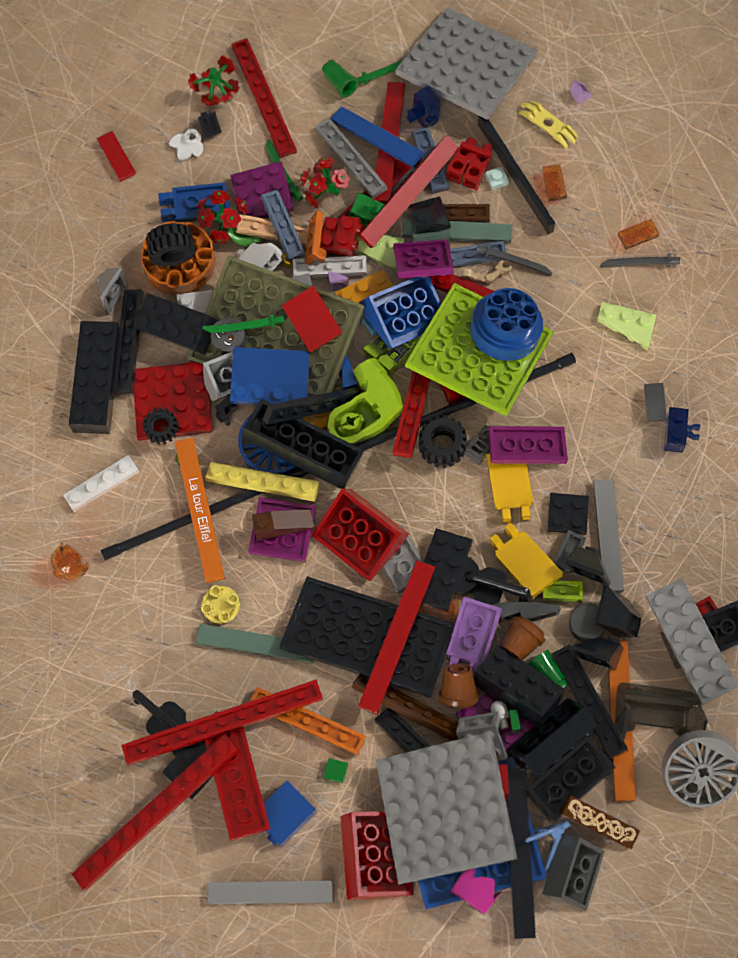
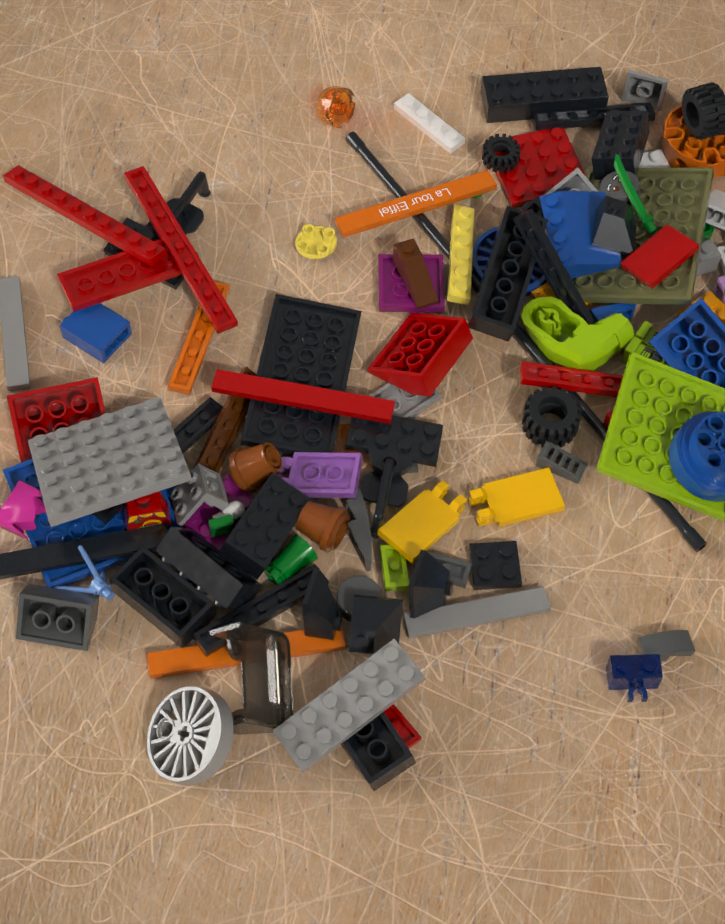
camera: 75 degrees right, 10 degrees down
(245, 642) = (279, 265): sand green tile -> none
(276, 348) = (614, 226): none -> black slope
(335, 770) = (149, 372): green tile -> none
(527, 445) = (570, 506): magenta plate -> none
(599, 821) = (115, 632): tile -> none

